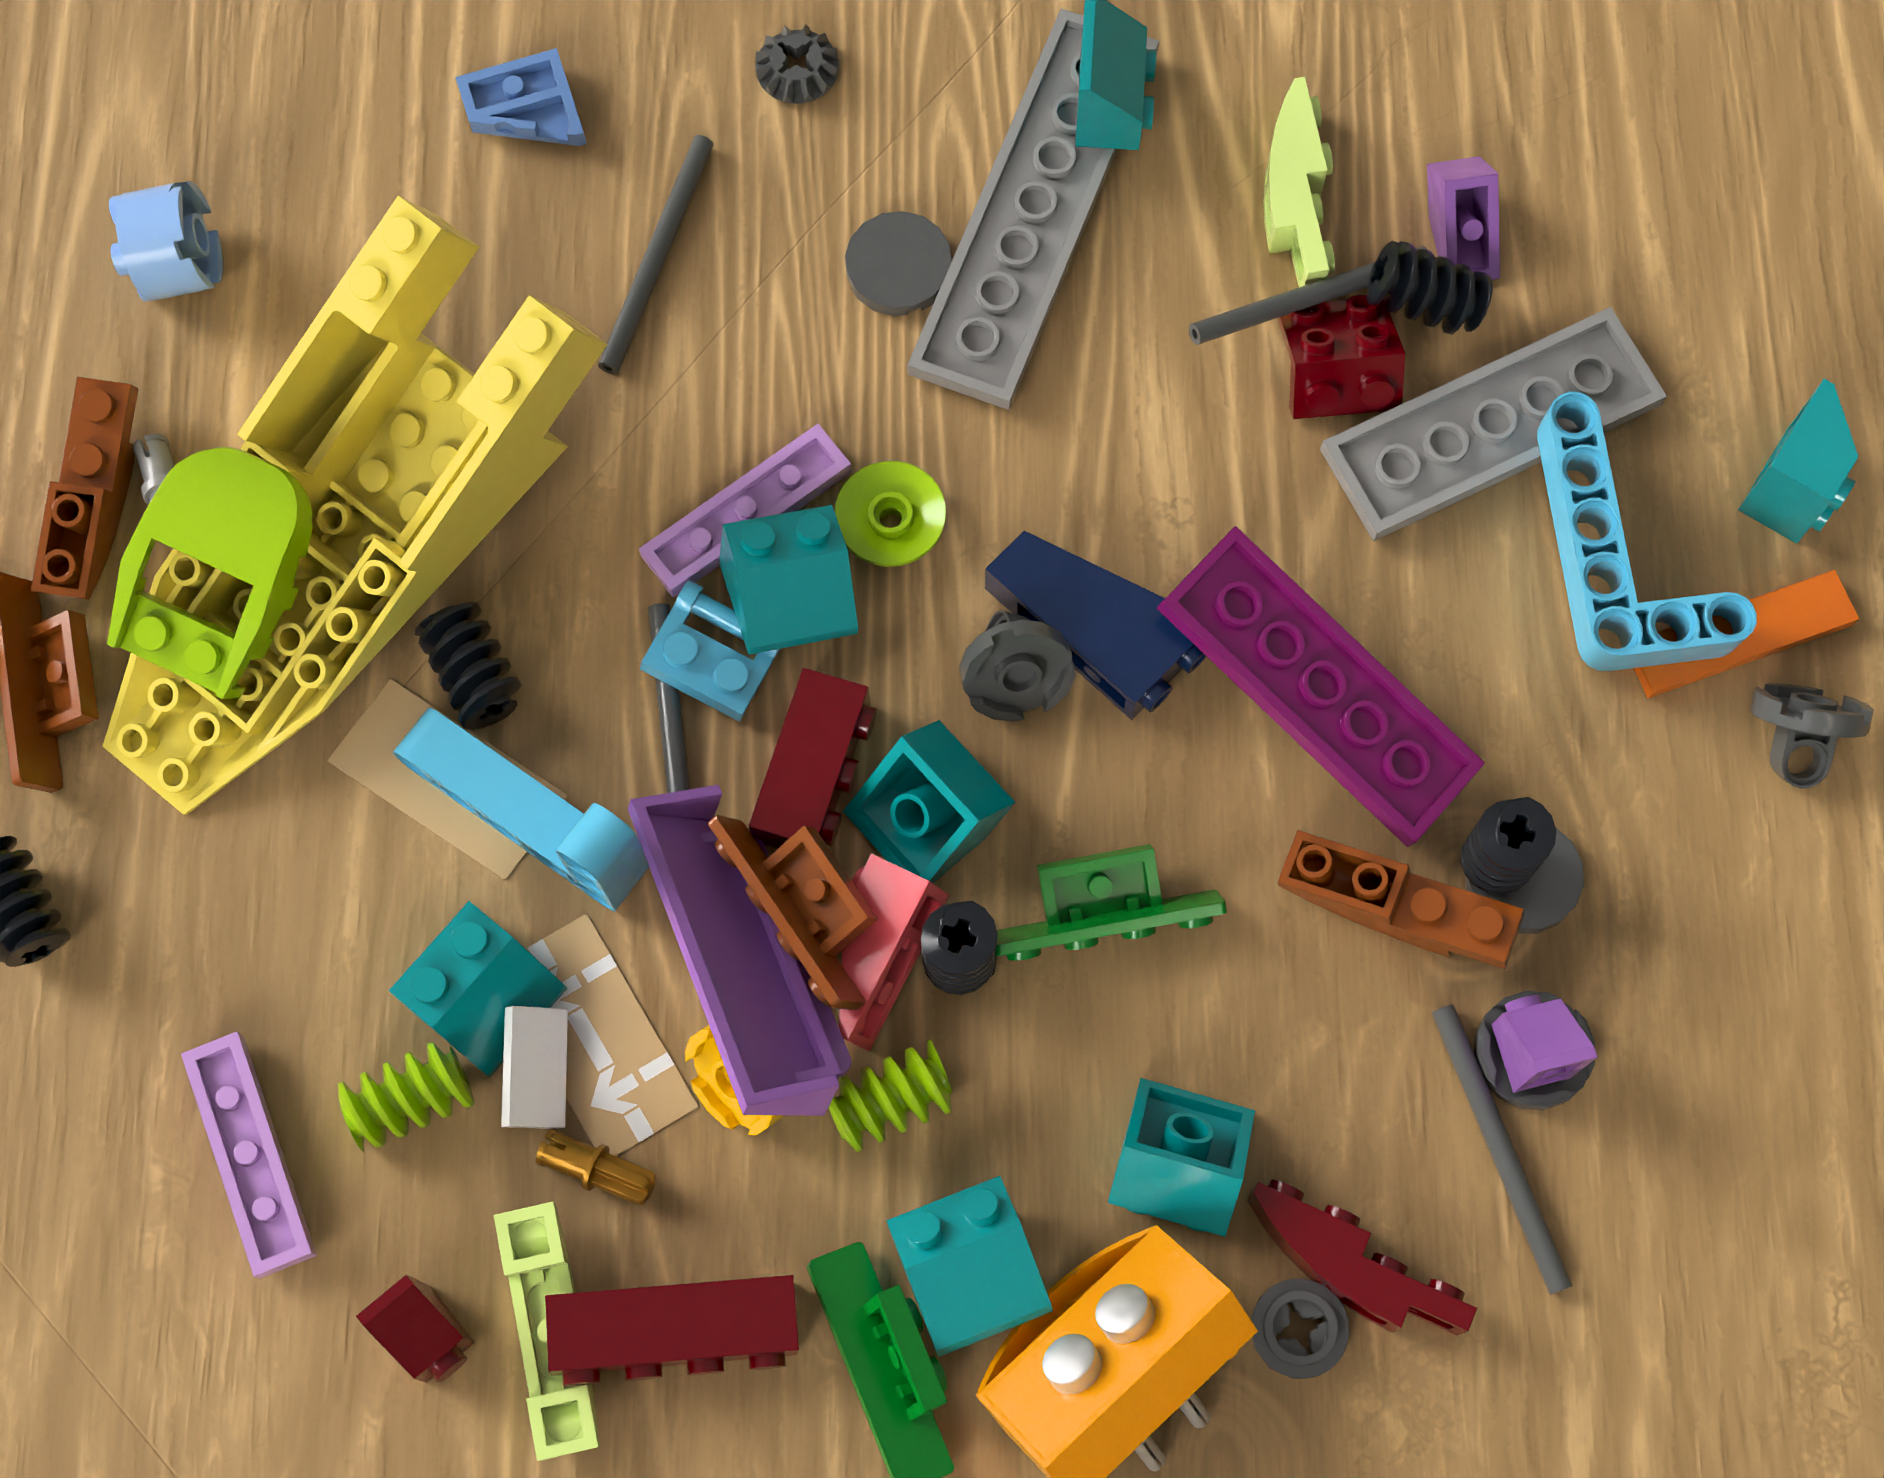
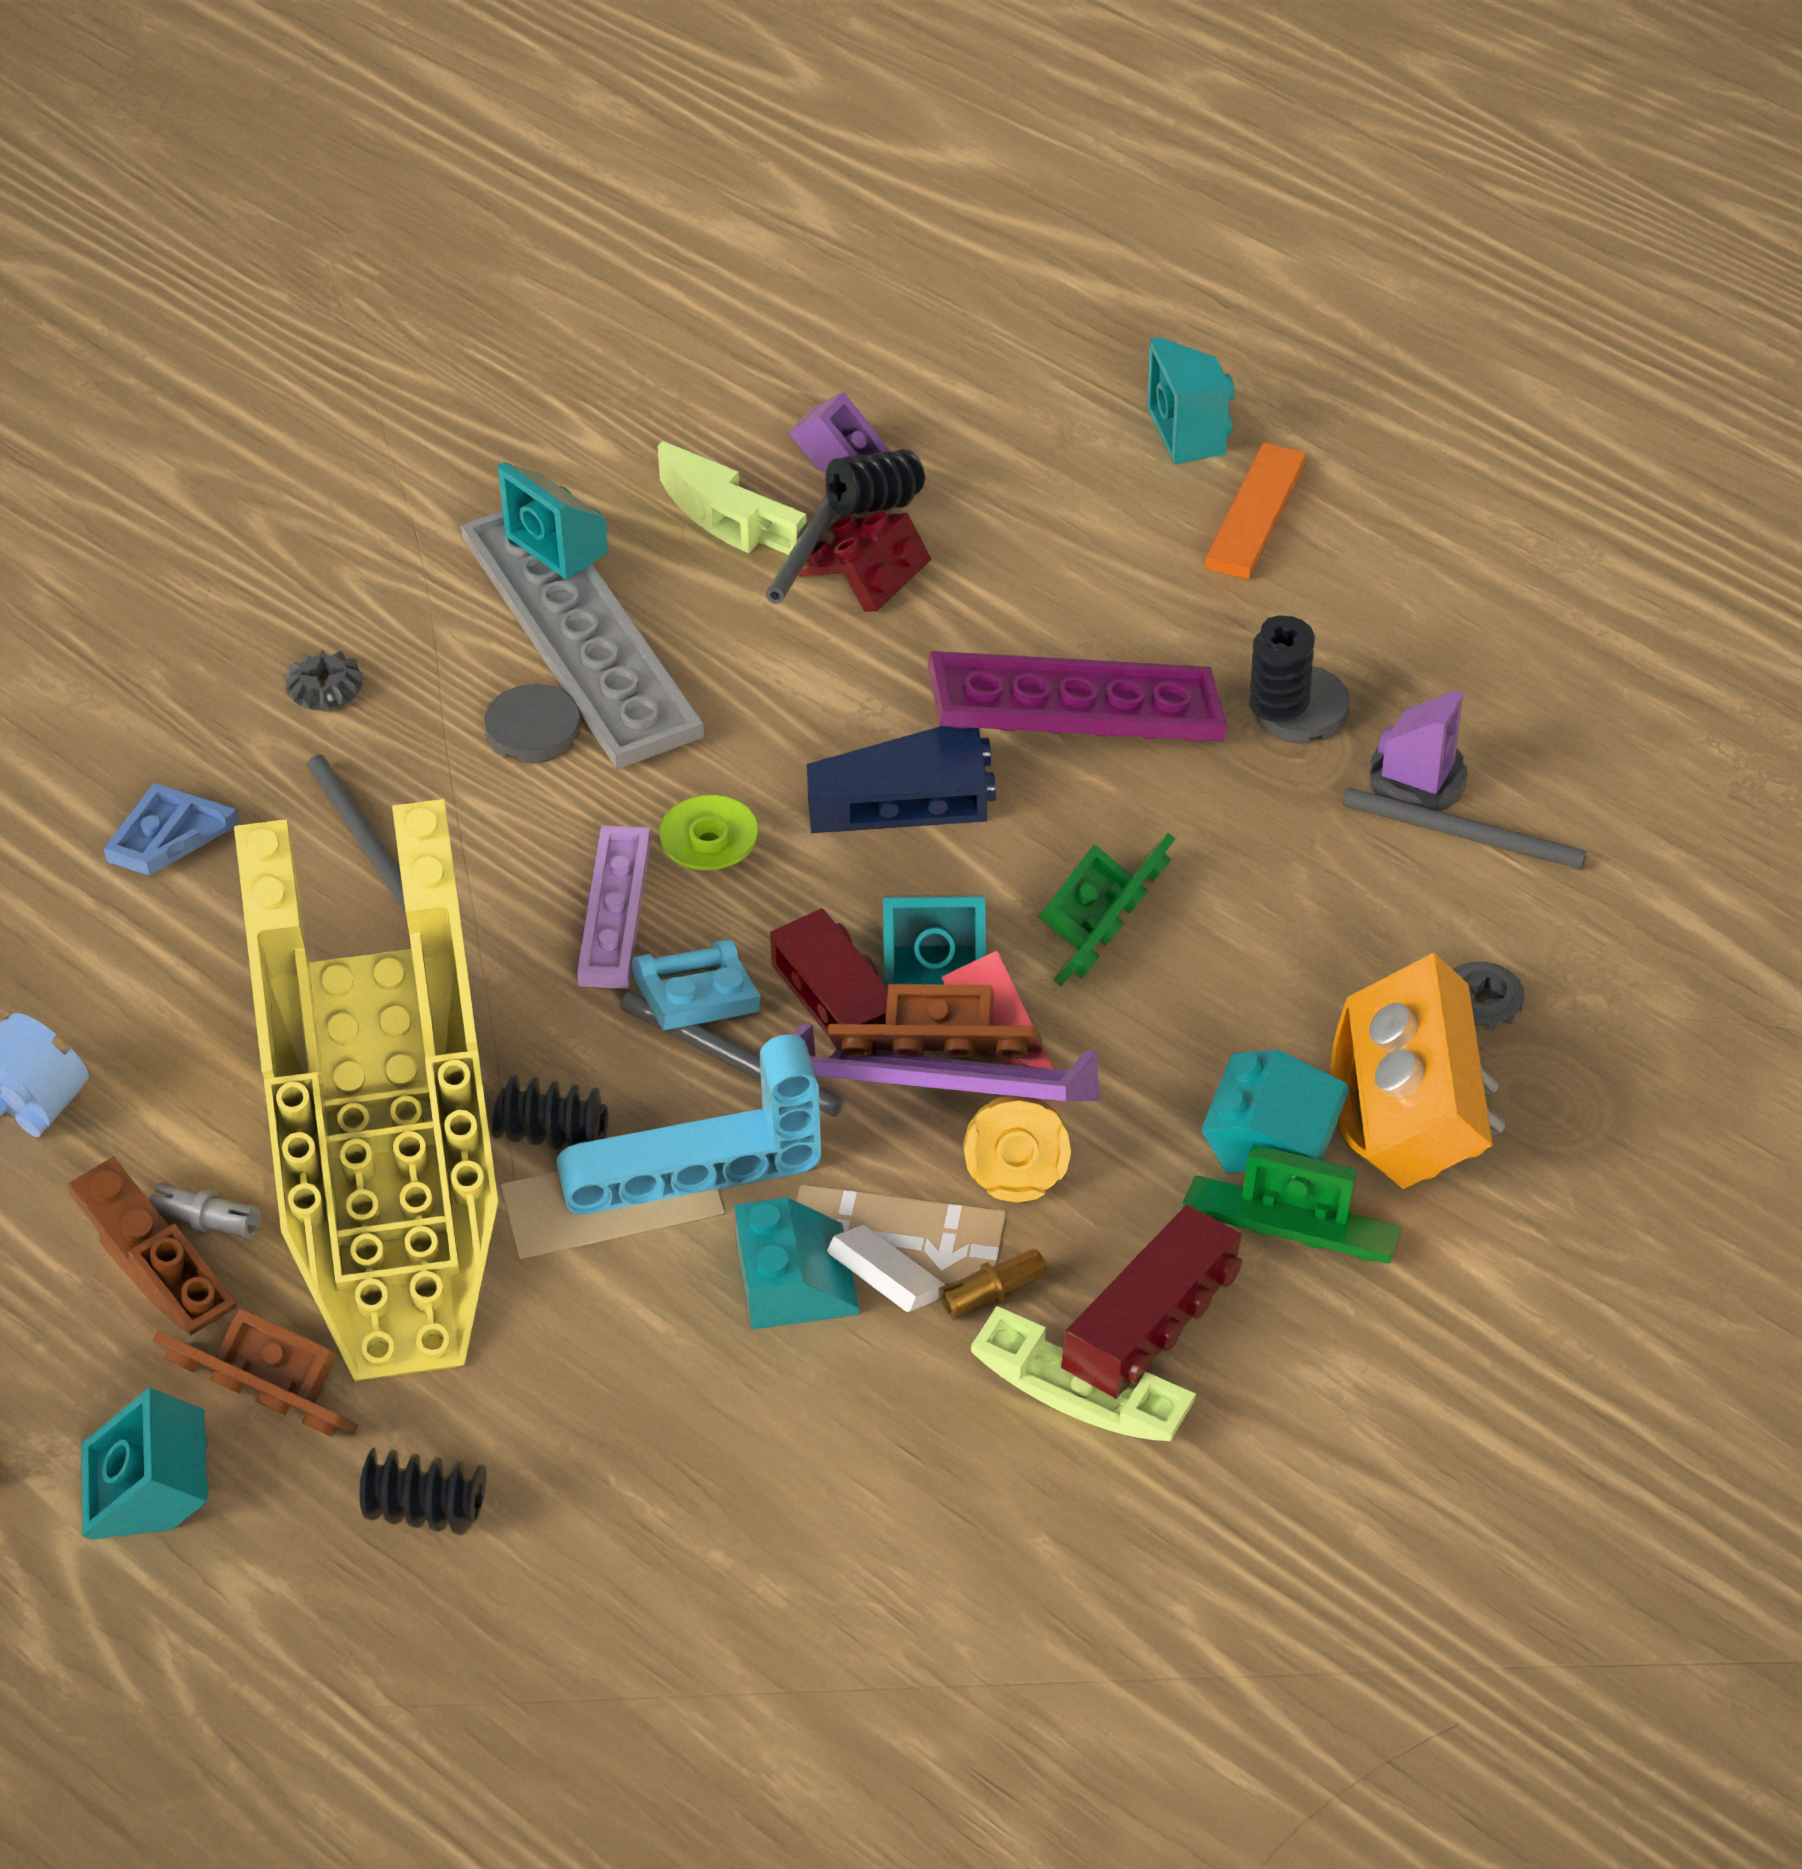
camera: 50 degrees left, 25 degrees down
(237, 519) = (312, 1117): lime slope -> none
(248, 1155) = (769, 1475): lavender plate -> none
(404, 1096) = (826, 1351): lime piece -> none
(417, 1330) = (1009, 1441): dark red slope -> none
(789, 579) = (695, 902): teal slope -> none
(890, 1096) = (1123, 1080): lime piece -> none
(942, 934) = (1056, 974): black piece -> none
(1016, 667) = (892, 830): dark grey tile -> none
(1182, 1157) = (1313, 973): teal slope -> none
(1331, 1251) = (1492, 935): dark red slope -> none
(1400, 903) = (1251, 769): dark orange slope -> none
(1485, 423) = (991, 524): light grey plate -> none
(1610, 560) = (1141, 524): medium azure beam -> none
(1808, 720) = (1349, 508): dark grey tile -> none

